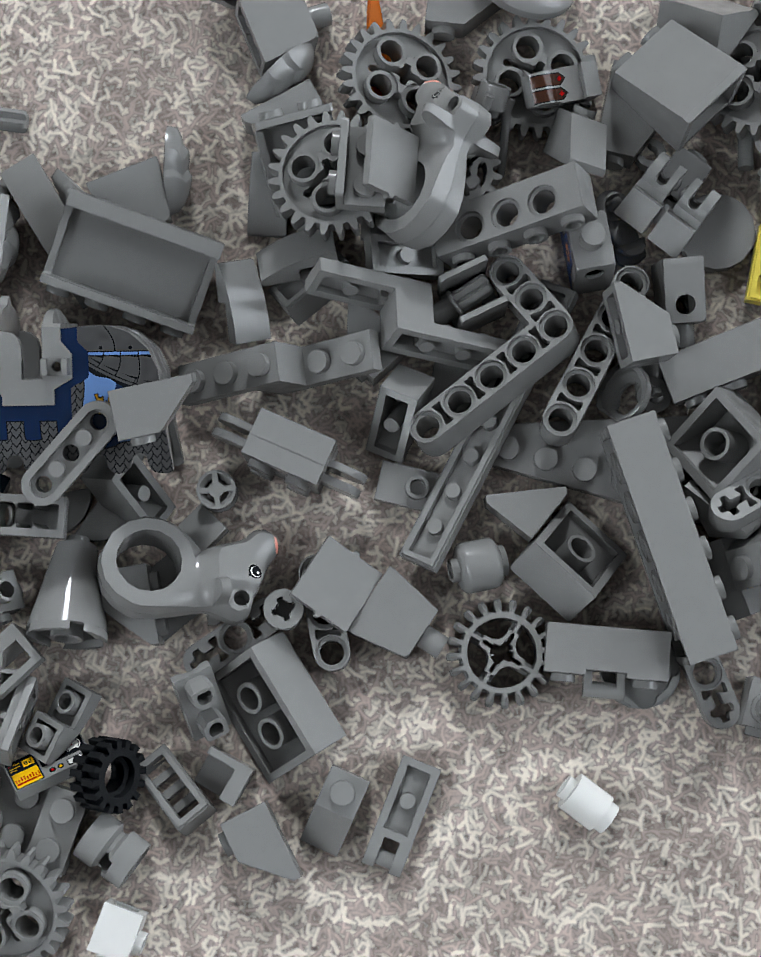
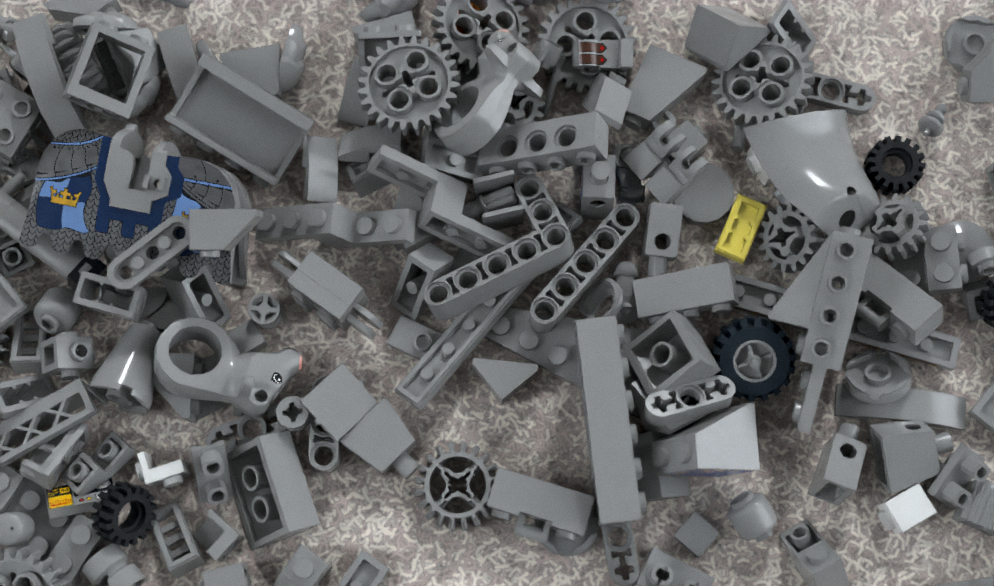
camera: 10 degrees right, 5 degrees down
(147, 715) = (167, 474): none -> white bracket
(348, 178) = (428, 81): light grey bracket -> none
(390, 160) = (453, 81): light grey piece -> none
(478, 565) = (456, 412): light grey head -> none
(568, 561) = (528, 424): light grey slope -> none
(639, 328) = (622, 252): light grey slope -> none
(677, 82) = (693, 70): light grey slope -> none

